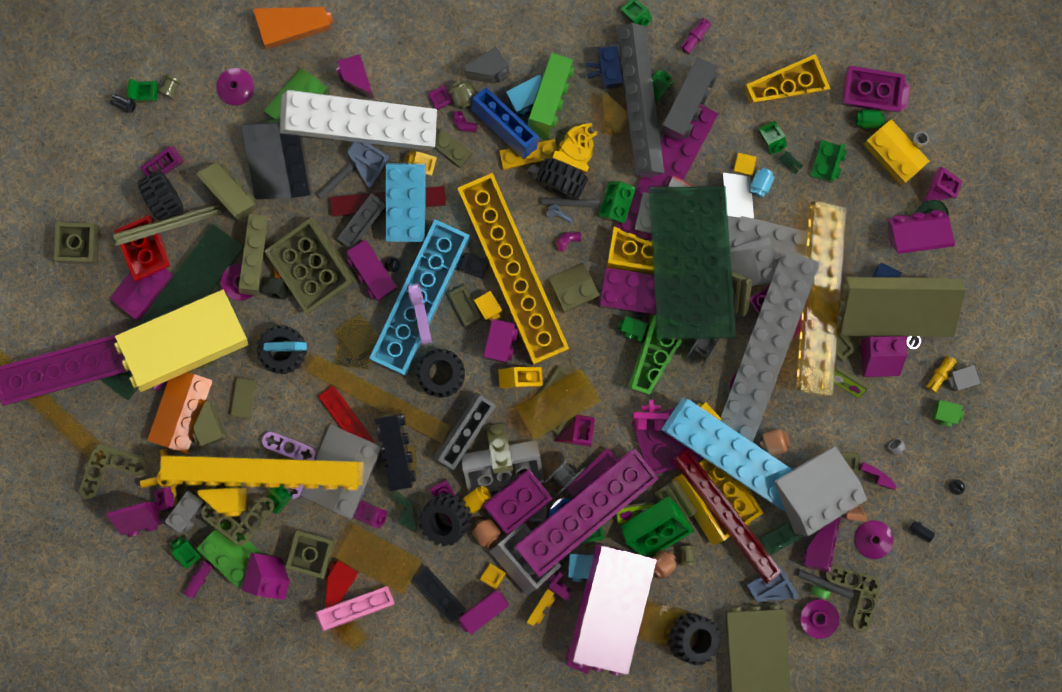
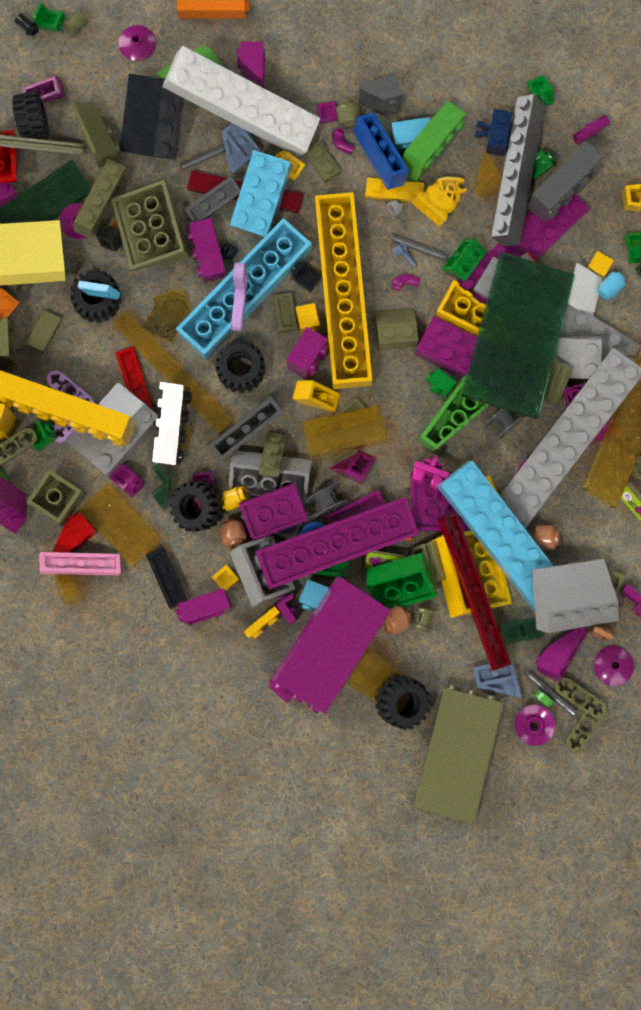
camera: 20 degrees right, 5 degrees down
(561, 179) = (418, 219): black tyre -> none

